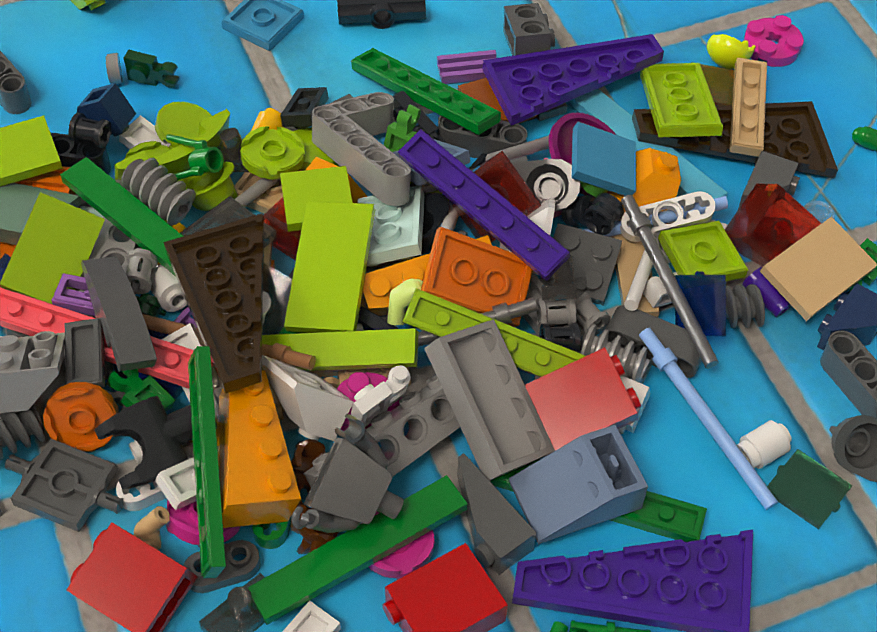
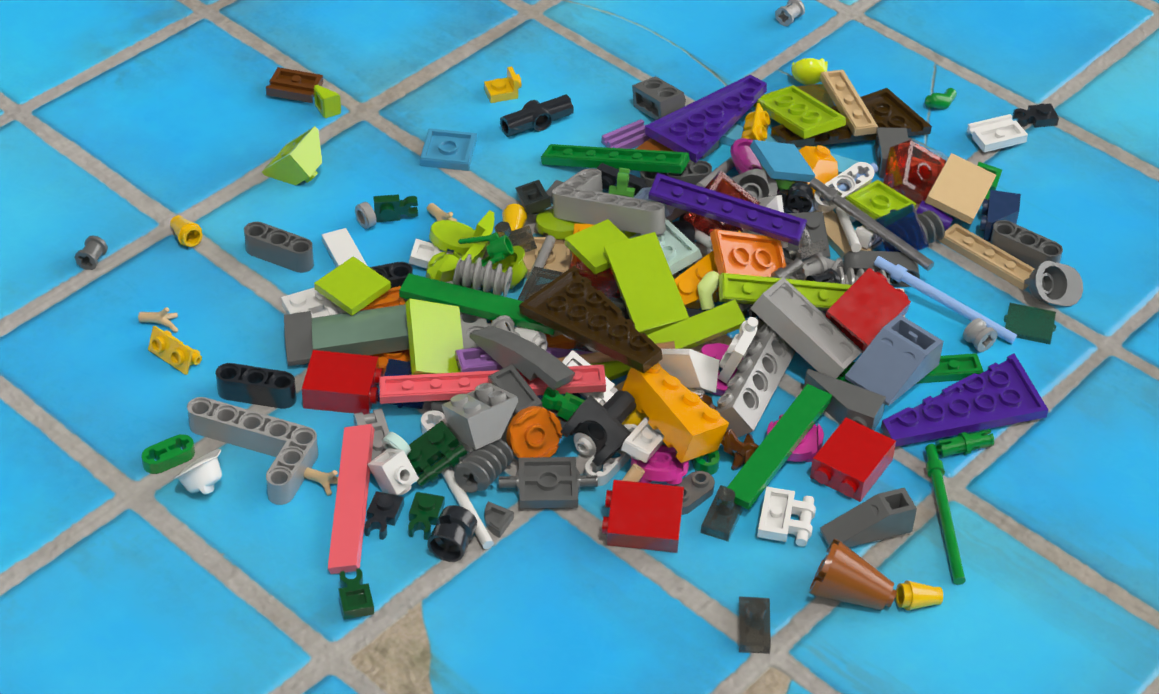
camera: 25 degrees left, 10 degrees down
(64, 99) = (341, 246): none -> white tile
(89, 130) = (397, 255): black bush -> none
(108, 104) = (393, 243): dark blue slope -> none
(196, 93) = (439, 214): none -> tan bar
(206, 463) = (654, 421): green tile -> none
(272, 152) = (539, 231): lime tile -> none
(349, 485) = (758, 398): dark grey torso -> none
(618, 103) = (756, 124): none -> yellow hinge
(724, 484) = (980, 335): none -> light grey wheel
(765, 444) = (991, 303): white brick -> none
(778, 29) = (837, 54): dark pink plate -> none
(808, 370) = (987, 255): none -> tan tile

